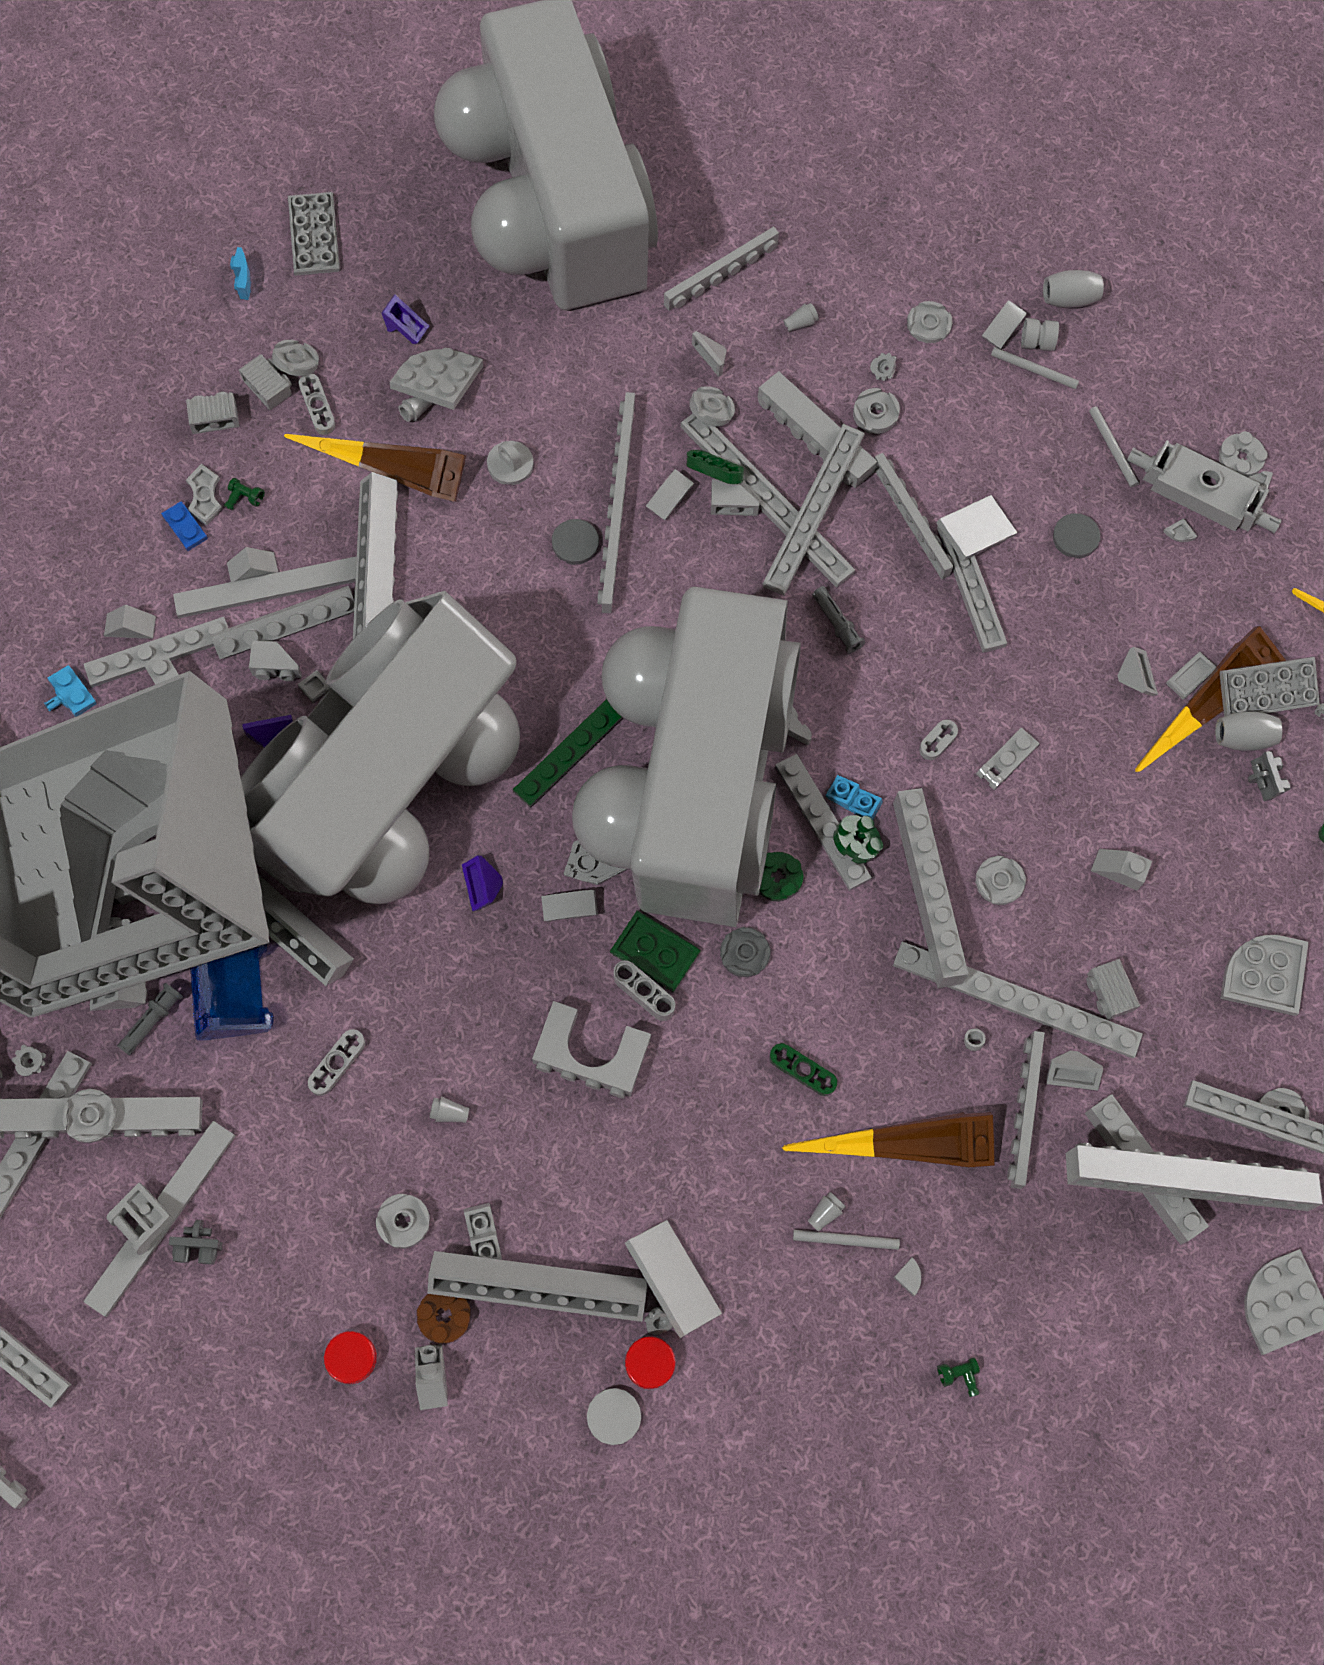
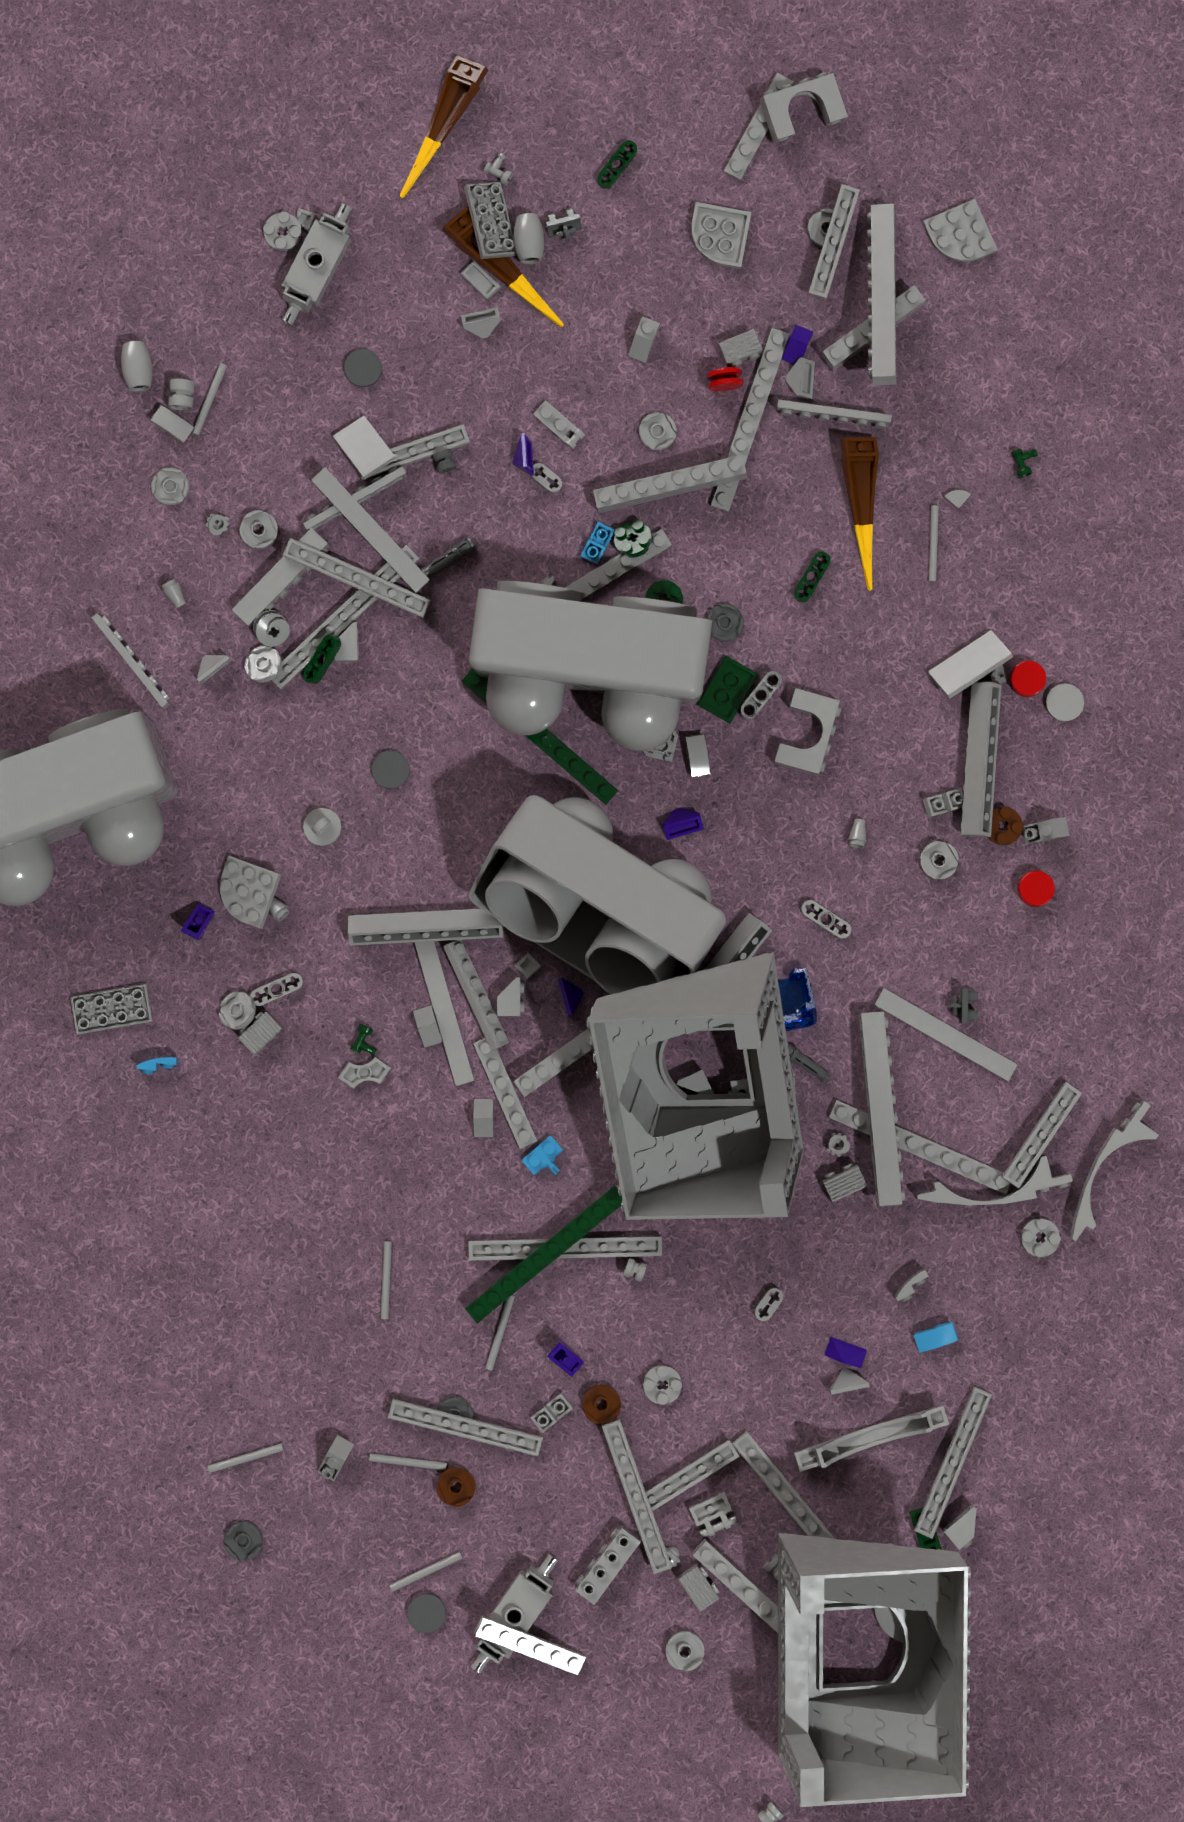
camera: 90 degrees left, 15 degrees up
(89, 1116) = (882, 1088): light grey tile -> none
(146, 1212) = (944, 1042): light grey plate -> none
(184, 526) = (394, 1085): blue plate -> none
(212, 413) = (291, 1072): light grey brick -> none
(423, 469) = (334, 898): reddish brown plate -> none
(615, 511) = (346, 737): light grey plate -> none
(669, 494) = (346, 694): light grey slope -> none
(755, 415) = (263, 625): none -> light grey piece
(826, 1211) = (915, 557): light grey cone -> none
(872, 526) = (370, 530): none -> light grey tile
(960, 620) = (444, 461): none -> dark grey wheel
(968, 714) = (523, 456): none -> dark purple slope
(972, 1036) = (779, 451): light grey hinge -> none
(1071, 965) = (725, 379): none -> red head
(1113, 446) = (280, 335): light grey bar -> none
(1121, 1066) = (797, 344): none -> dark purple slope
(1180, 531) = (354, 284): light grey tile -> none

